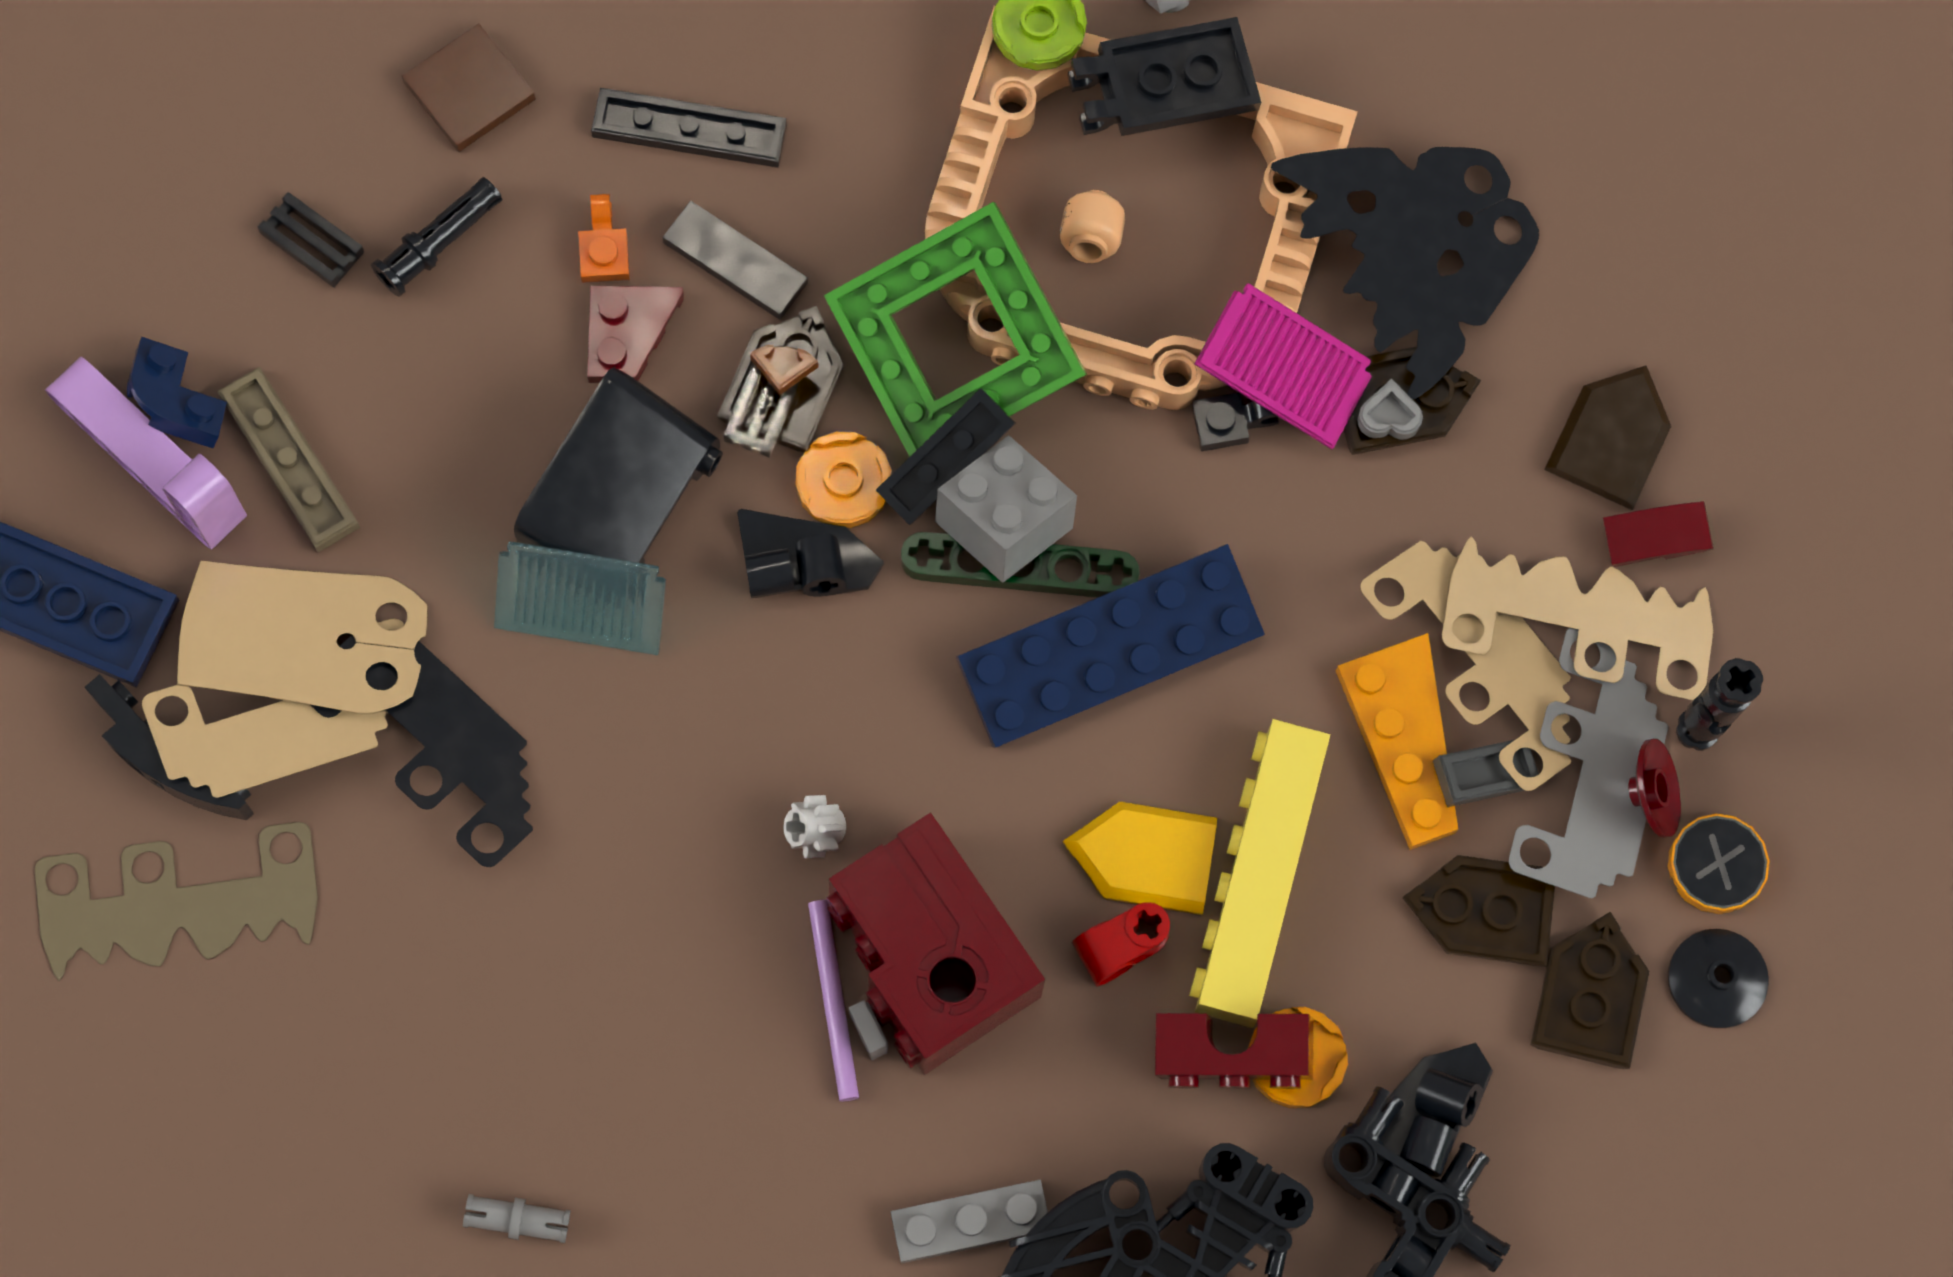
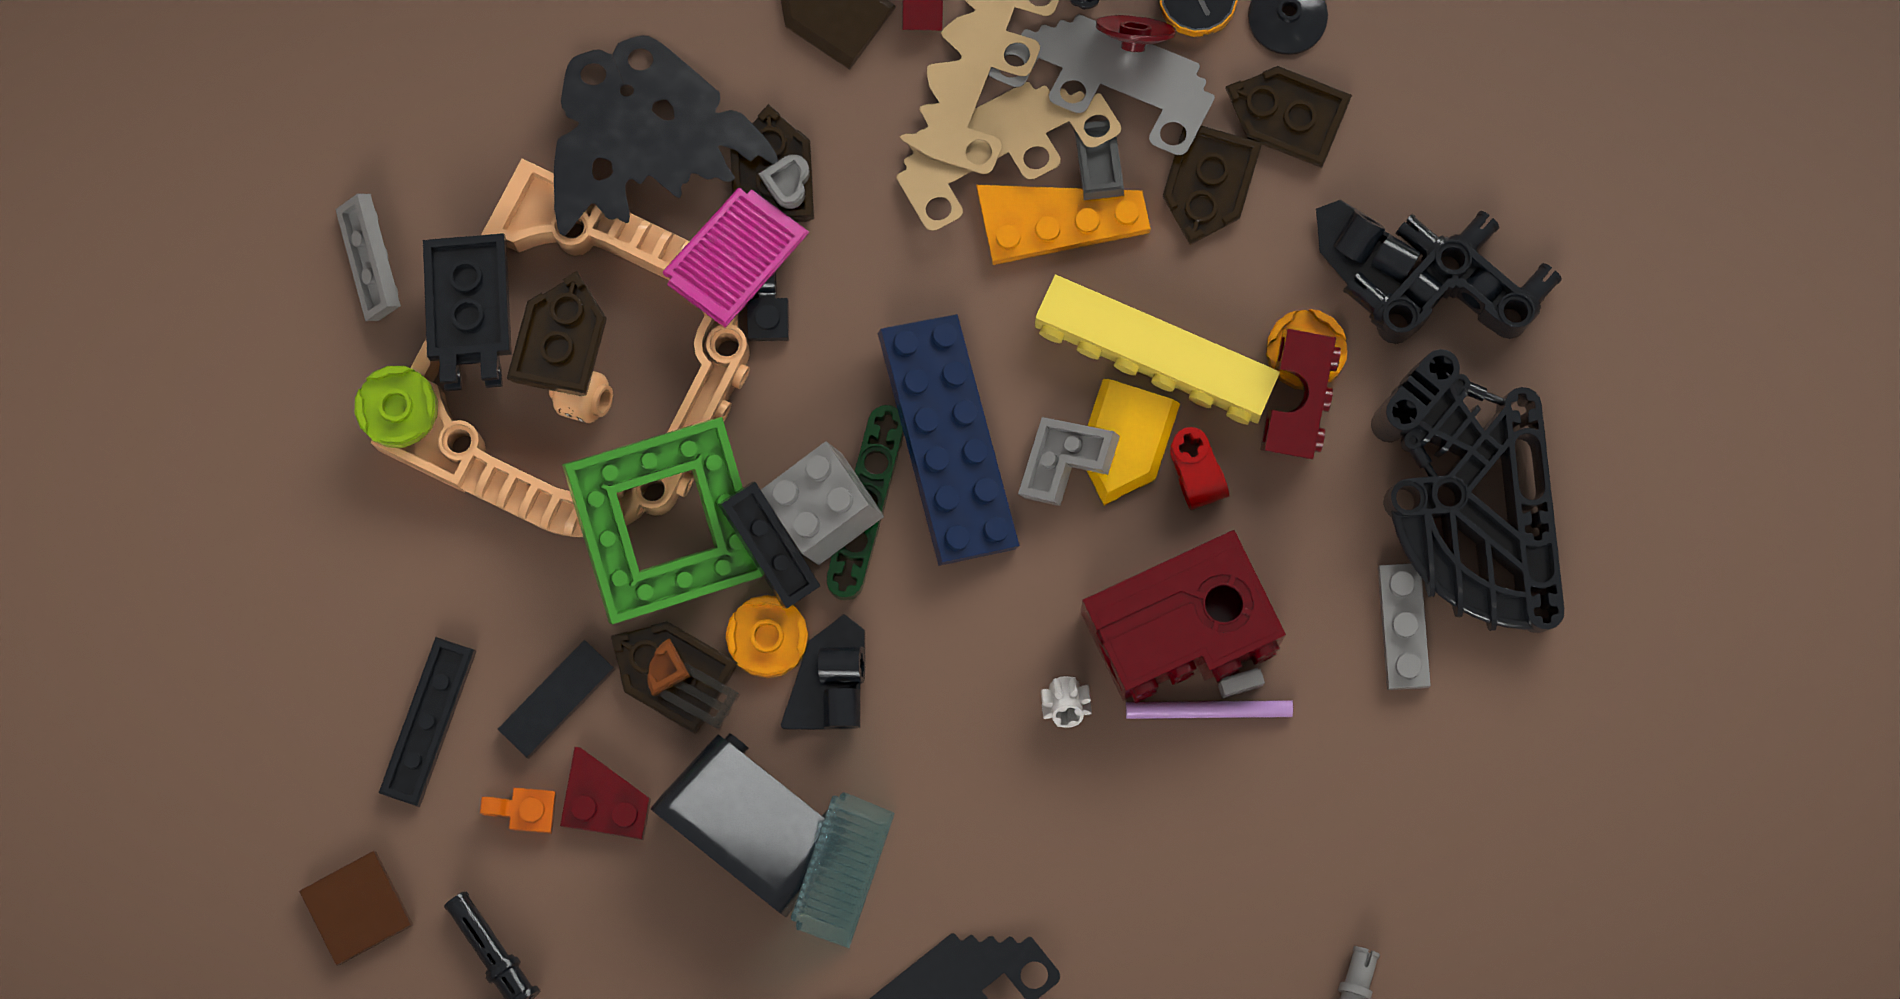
camera: 70 degrees left, 5 degrees up
(1115, 772) = (1059, 449): none -> light grey plate
(1148, 183) = (559, 339): none -> dark brown tile

